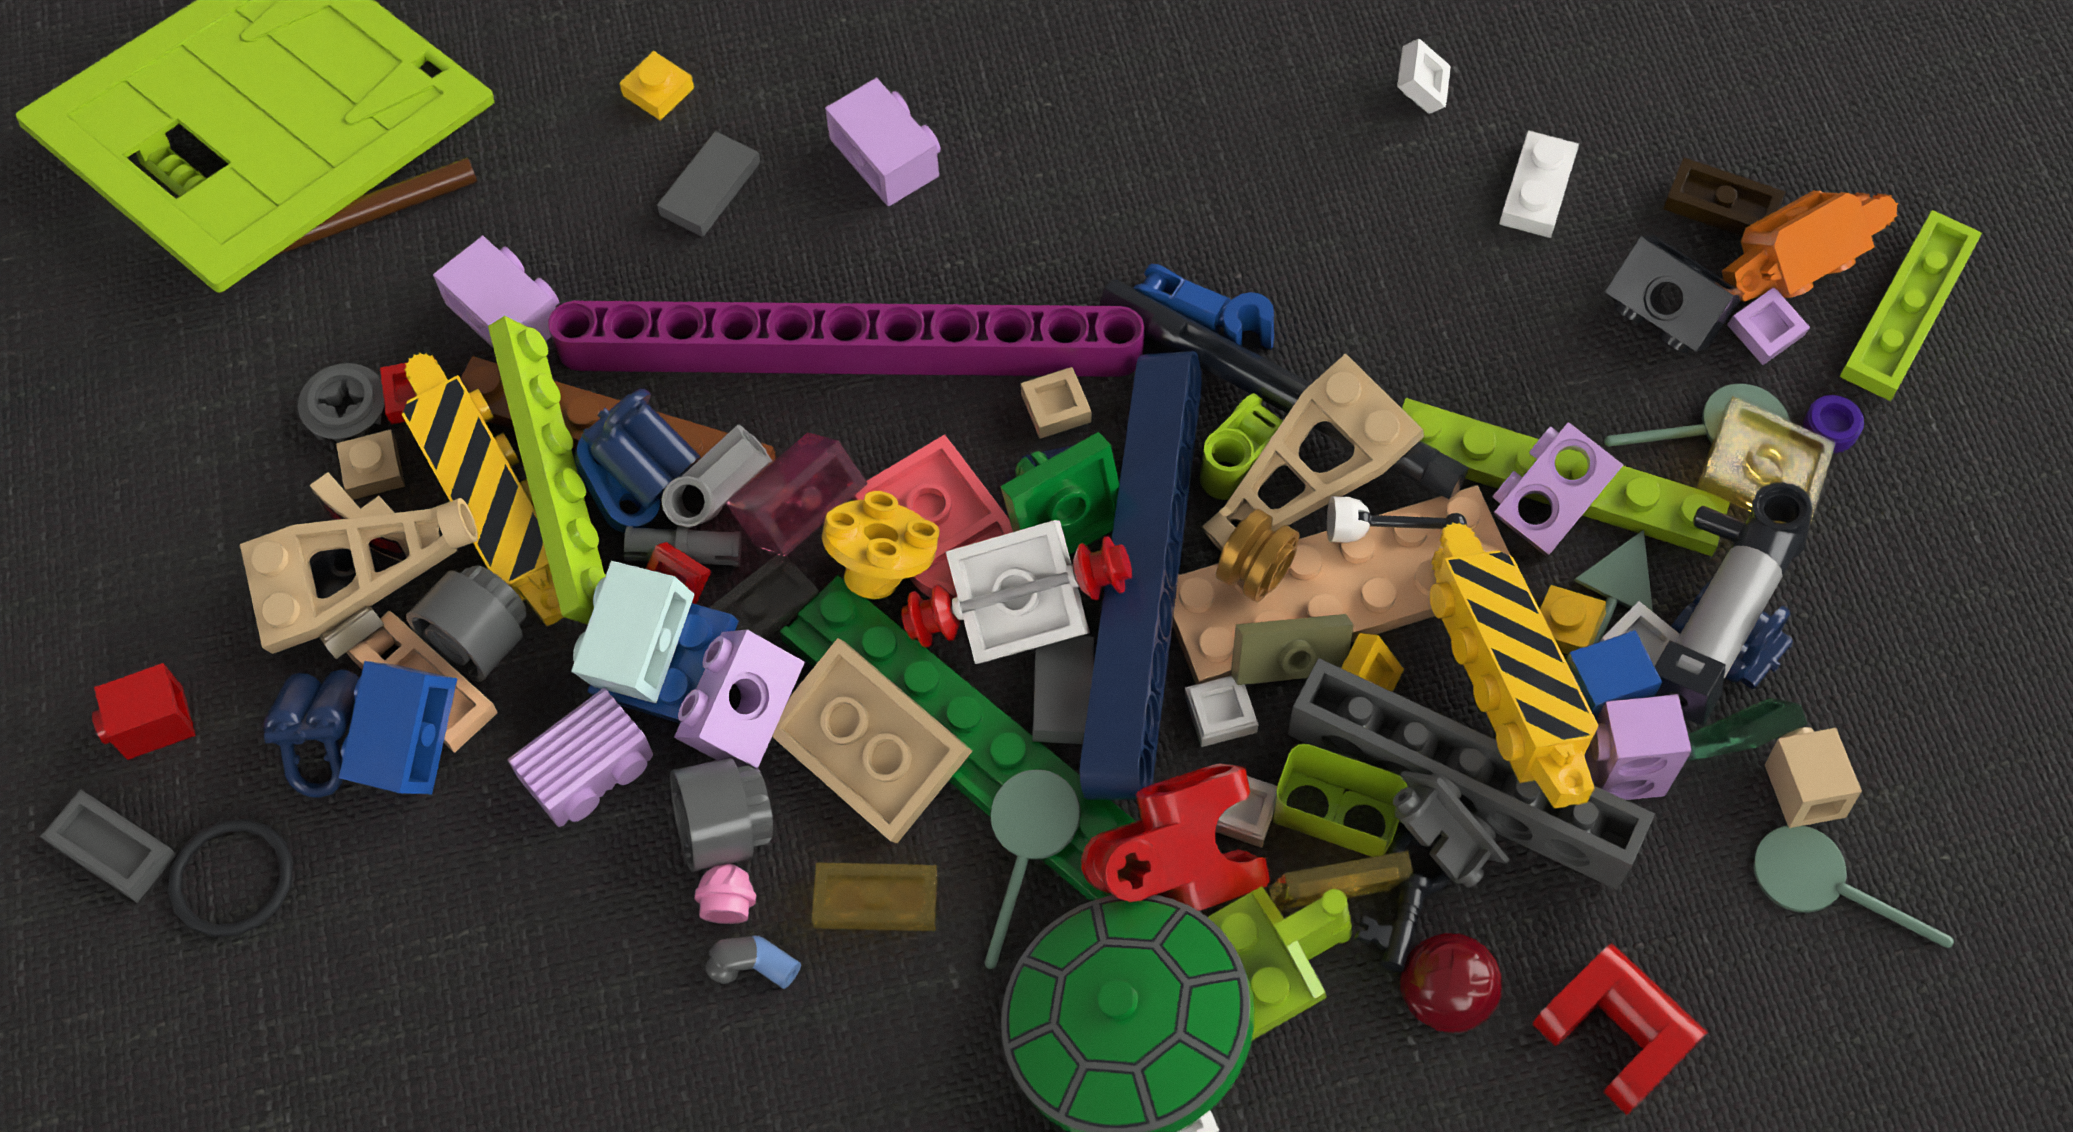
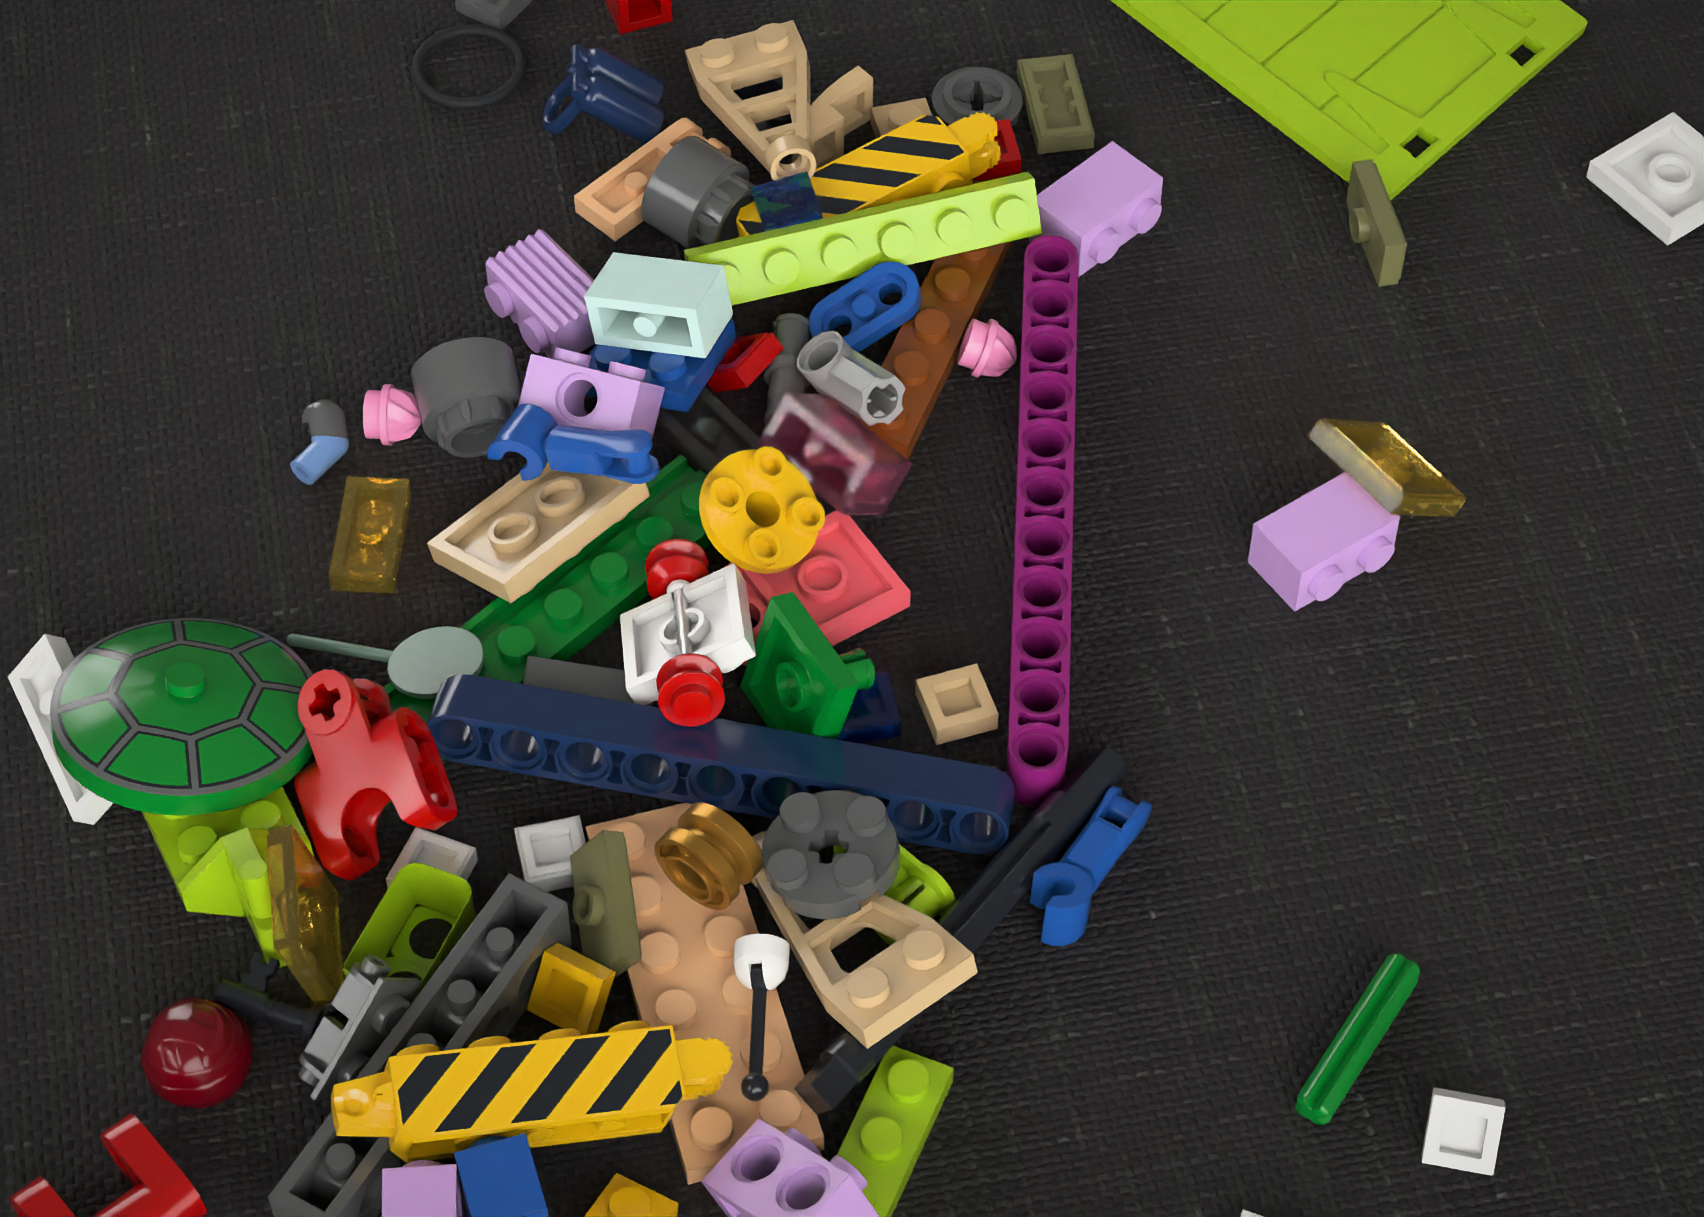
camera: 90 degrees right, 10 degrees down
(351, 631) = (703, 118): dark tan tile -> none
(355, 336) = (1055, 104): none -> olive plate
(393, 199) = (1238, 129): reddish brown piece -> none
(397, 728) = (584, 148): blue brick -> none
(507, 531) = (786, 202): none -> clear blue tile
(530, 94) = (1375, 223): none -> olive plate
(639, 448) = (885, 308): dark blue piece -> none
(656, 85) = (1406, 340): yellow plate -> none
(665, 384) = (987, 349): none -> bright pink plate
(708, 183) = (1267, 389): dark grey tile -> none
(787, 744) = (574, 449): none -> blue piece
(816, 90) = (1387, 467): none -> clear yellow tile
(1250, 433) = (822, 820): none -> dark grey plate
(1345, 141) = (1357, 1039): none -> green axle

